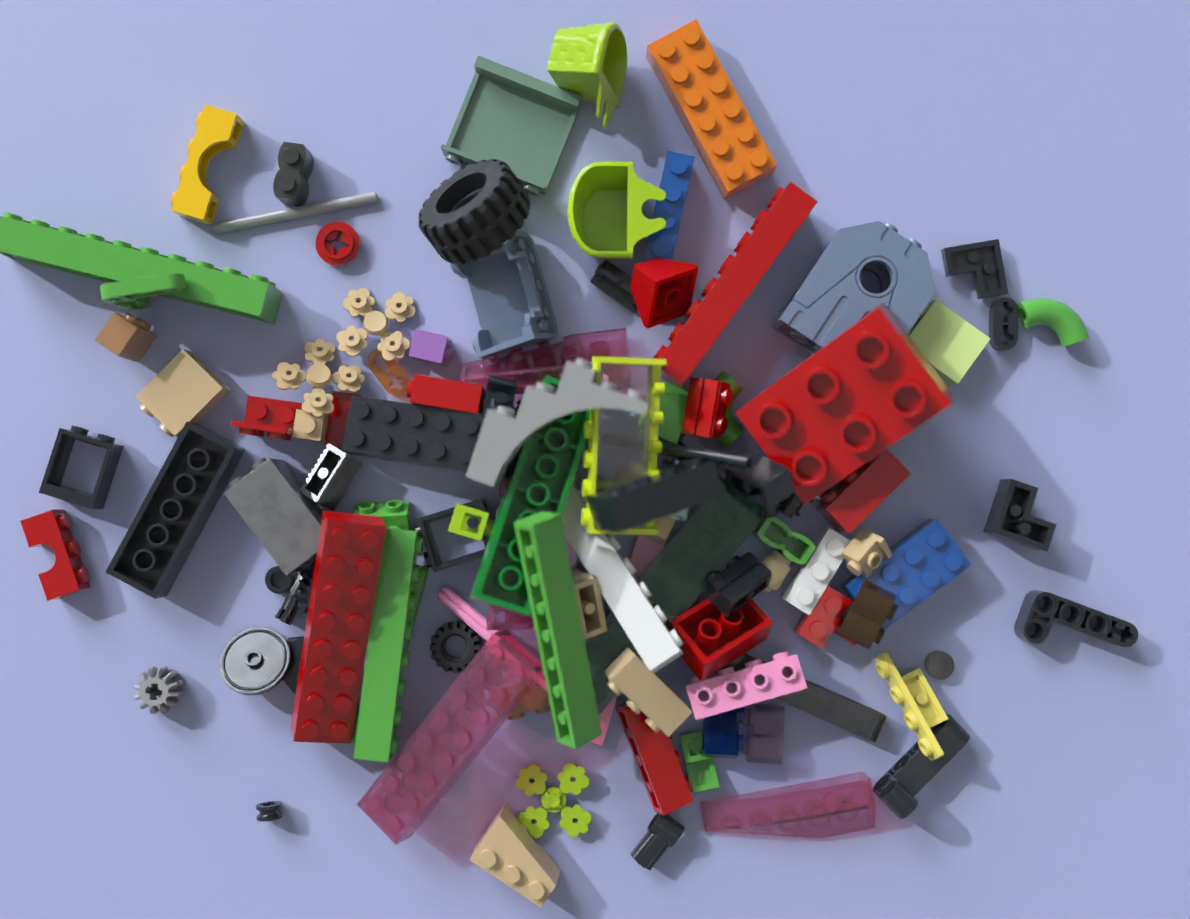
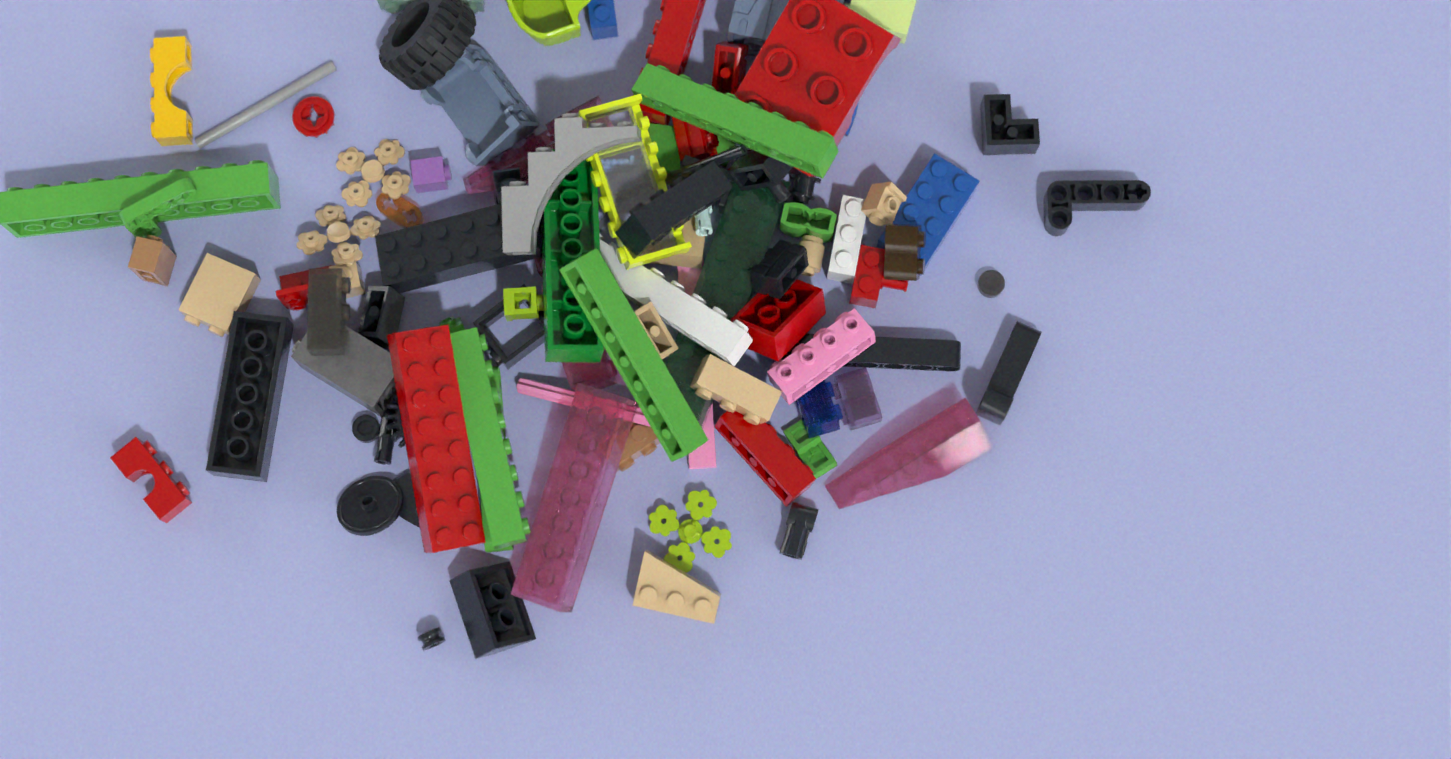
camera: 20 degrees left, 10 degrees down
(58, 462) = (136, 365): black window -> none
(165, 683) = (283, 576): light grey gear -> none
(272, 466) = (328, 312): none -> clear smoke brick
(295, 167) = (253, 70): pearl dark grey brick -> none
(331, 810) = (489, 611): none -> black slope
(338, 418) = (370, 265): red tile -> none
(438, 643) = (533, 422): black tyre -> none
(446, 394) = (457, 200): red brick -> none
(615, 284) = (579, 63): black hinge -> none
(662, 289) = (617, 48): red slope -> none
(753, 429) = (736, 120): none -> bright green brick
(765, 355) = (729, 66): none -> red brick
(862, 492) = (858, 152): red brick -> none
(917, 702) = (979, 317): light yellow bracket -> none

